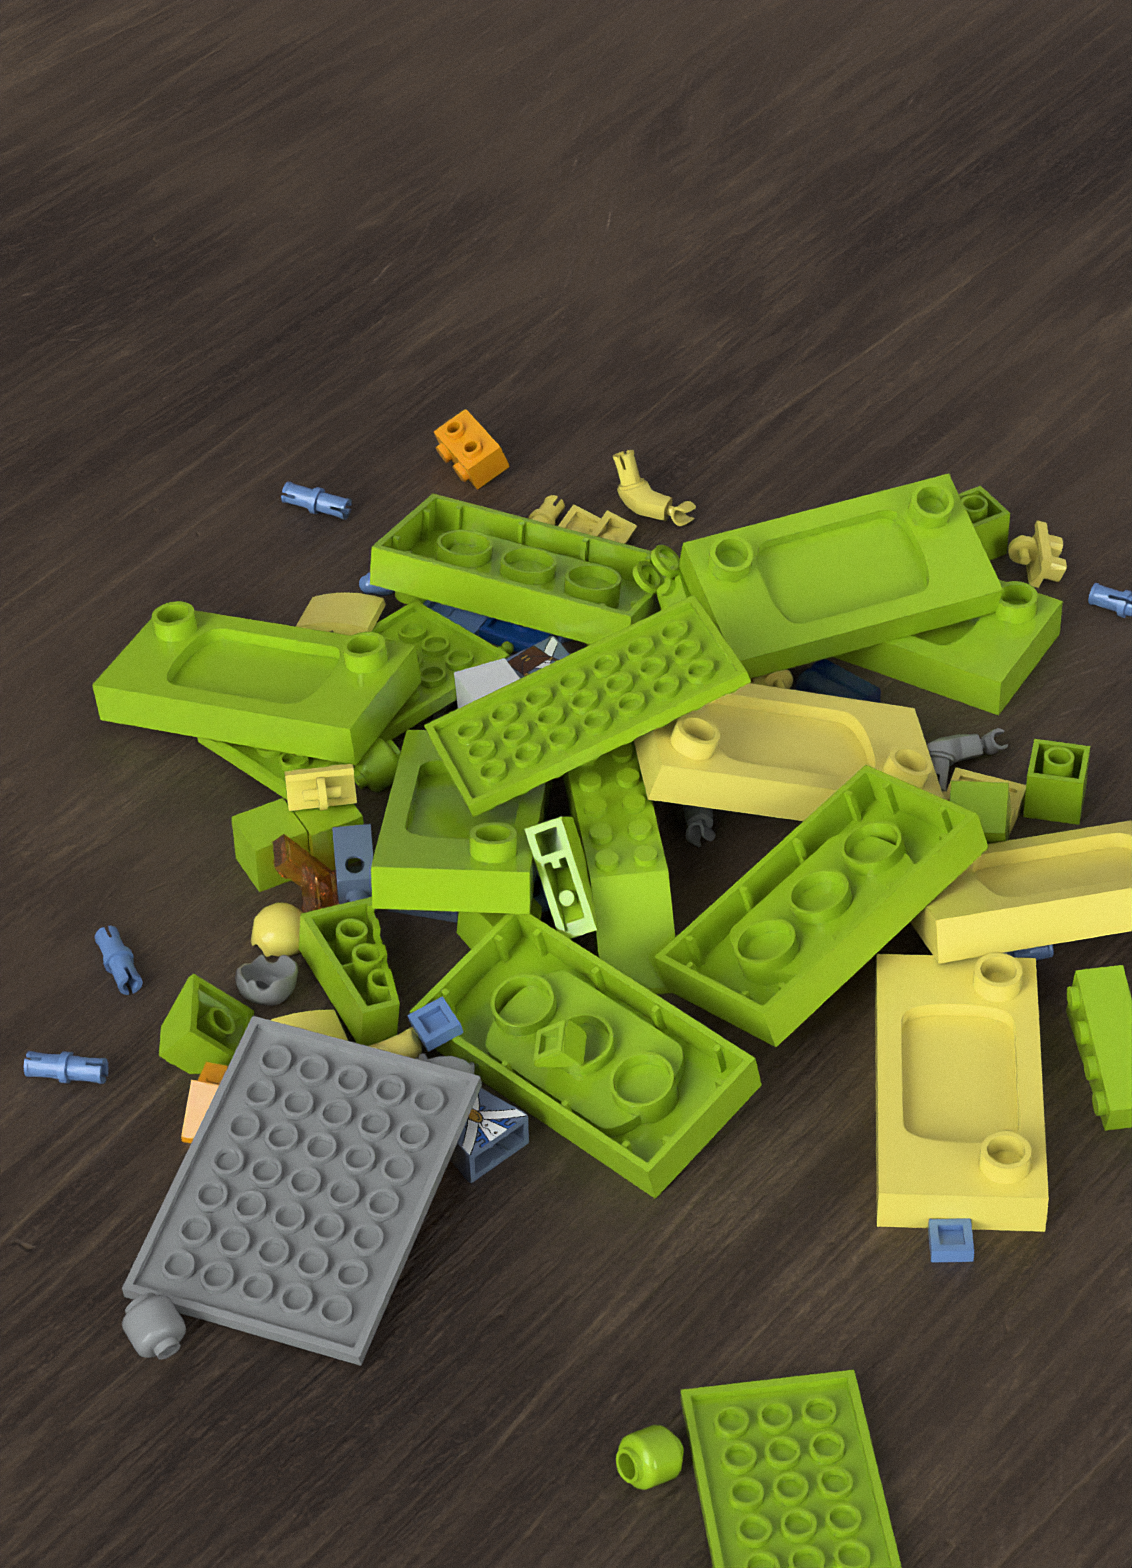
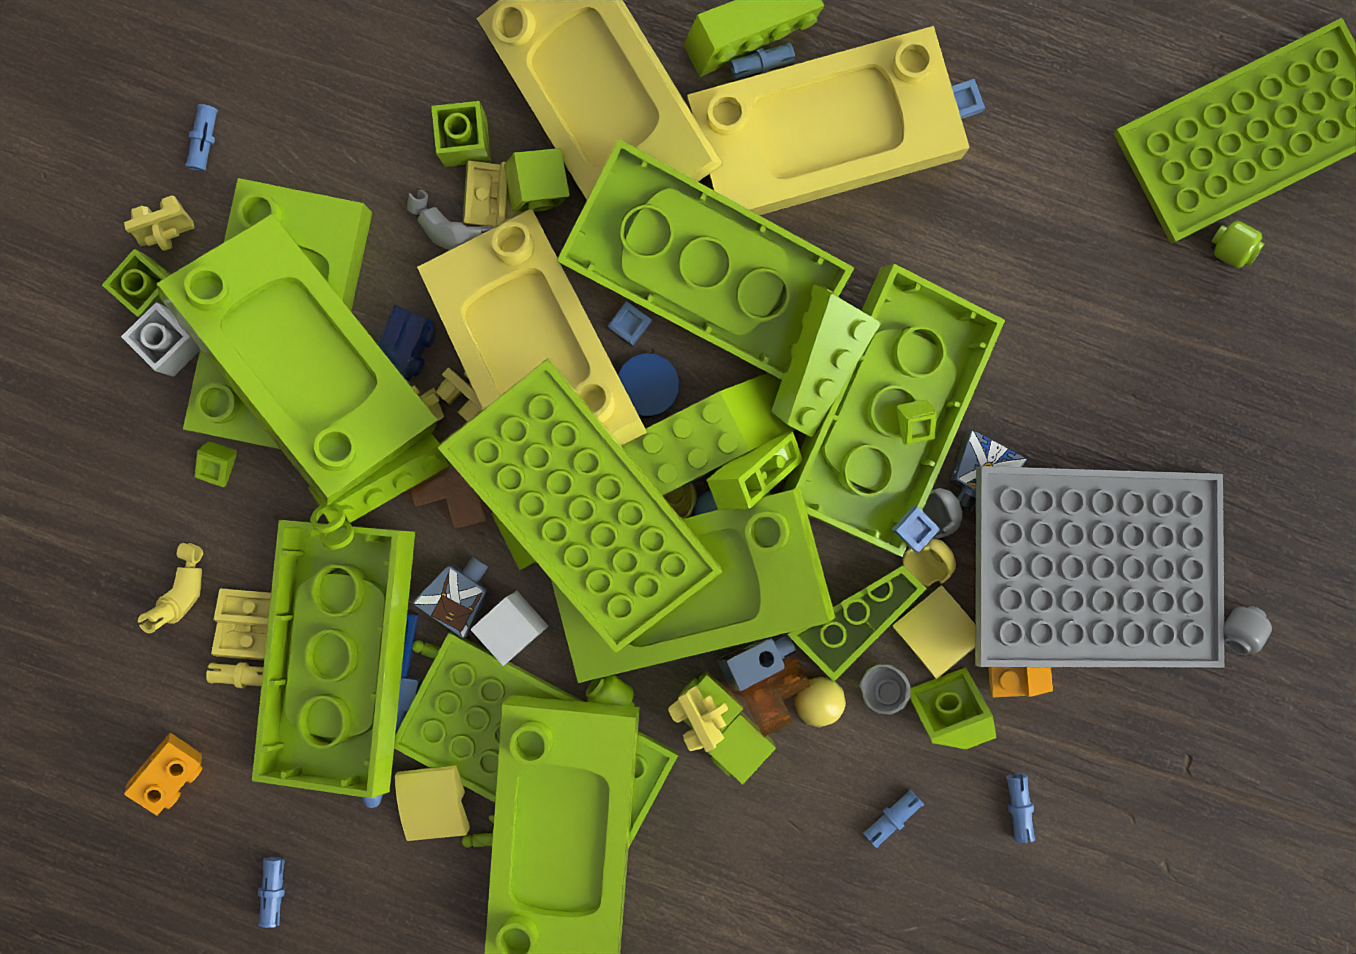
camera: 105 degrees left, 45 degrees up
(680, 968) = (822, 359): none -> lime wedge
(706, 875) = (650, 383): none -> blue tile
(1064, 1059) = (762, 61): none -> medium blue pin

